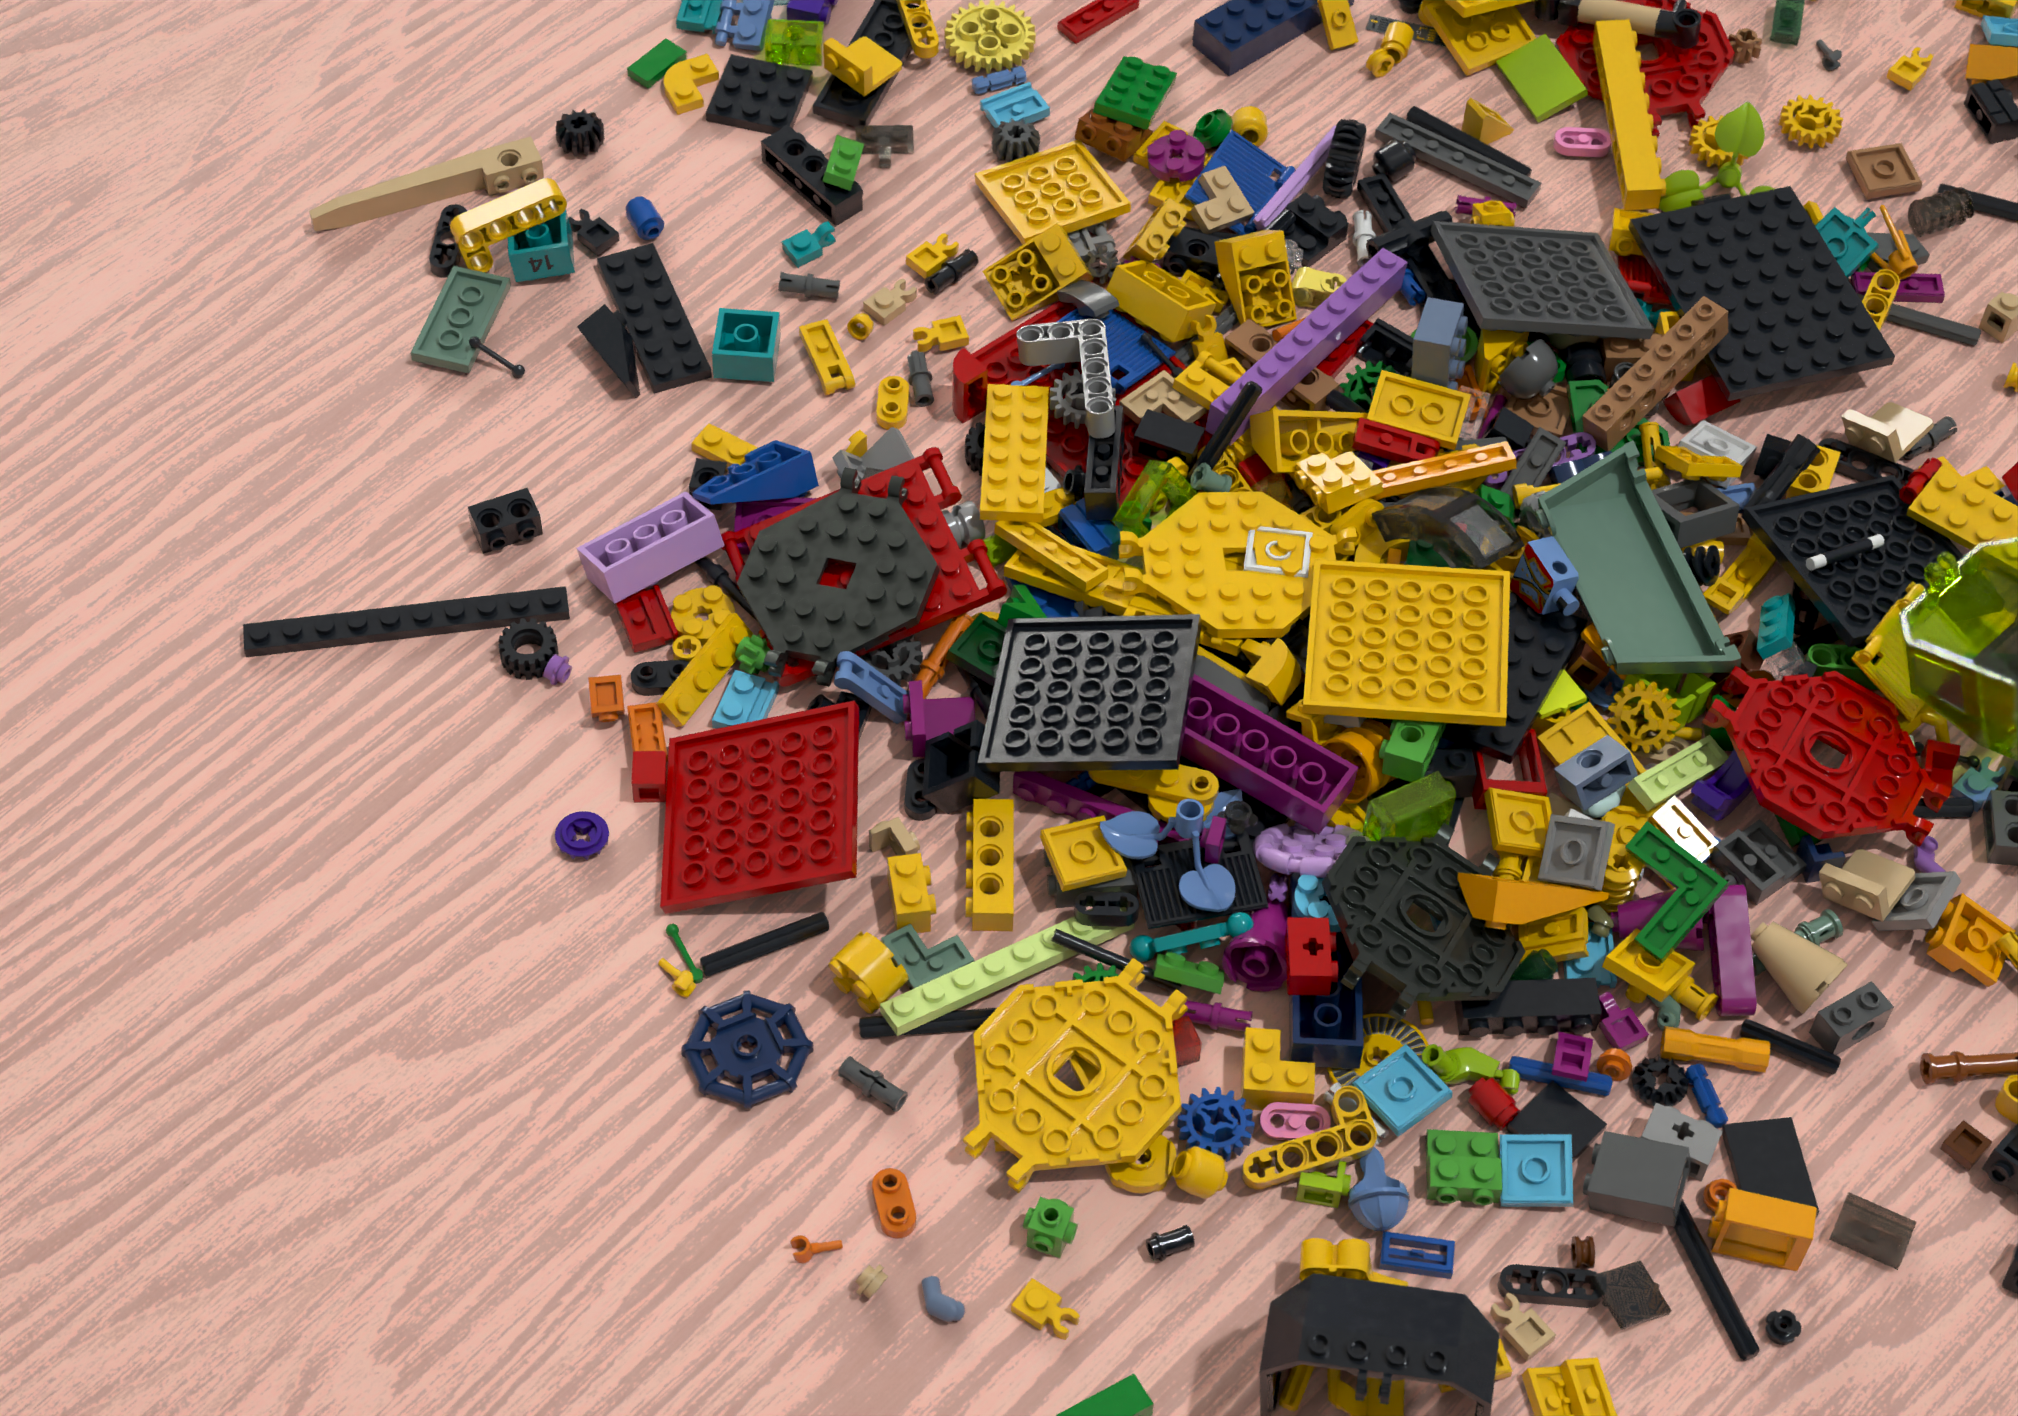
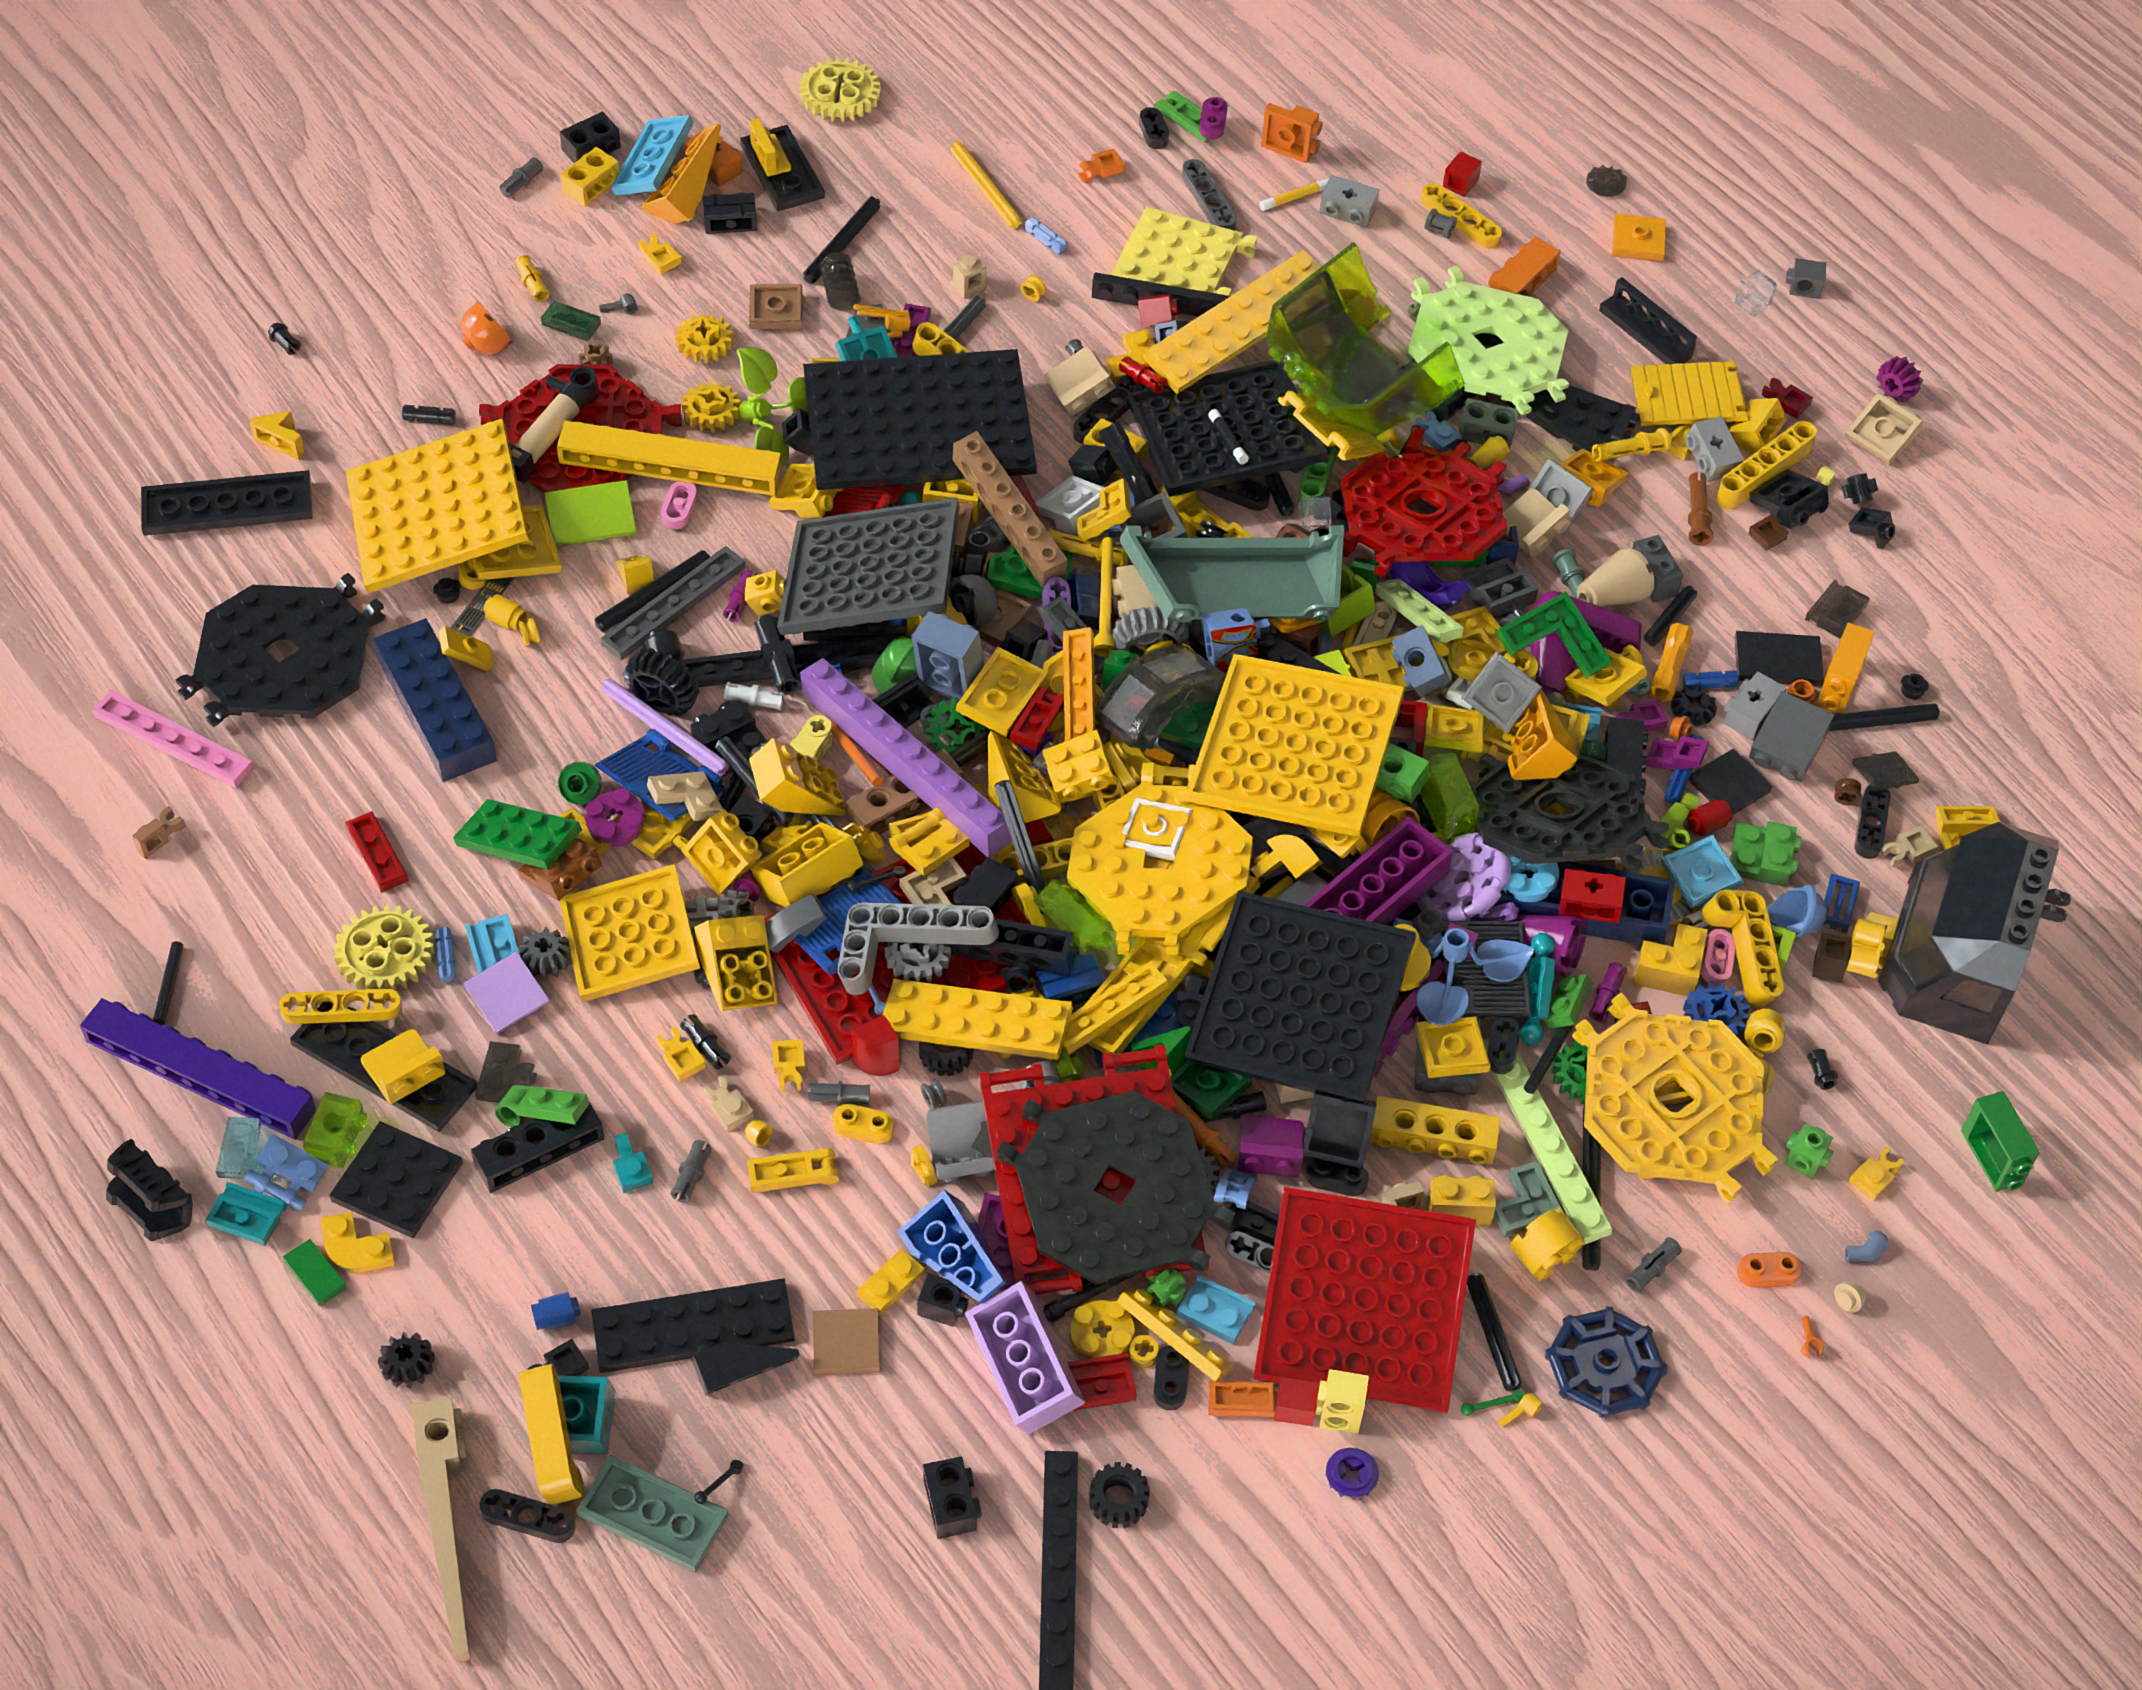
camera: 80 degrees left, 0 degrees up
(557, 669) = (1151, 1468): medium lavender plate -> none
(606, 697) = (1196, 1428): orange bracket -> none
(646, 805) = (1342, 1401): none -> light yellow brick
(656, 426) = (846, 1341): none -> medium nougat tile
(746, 345) = (769, 1235): teal brick -> none
(935, 439) = (933, 1094): none -> dark grey bush
(964, 124) = (506, 993): none -> lavender tile
(1210, 481) = (1052, 857): sand green bush -> none
(1250, 124) = (585, 748): yellow head -> none
(1322, 1224) = (1831, 957): none -> dark brown brick
(1536, 1170) = (1773, 800): medium azure plate -> none
(1656, 710) = (1368, 614): yellow gear -> none
(1776, 625) = (1278, 508): teal plate -> none
(1964, 835) = (1491, 451): none -> yellow cone

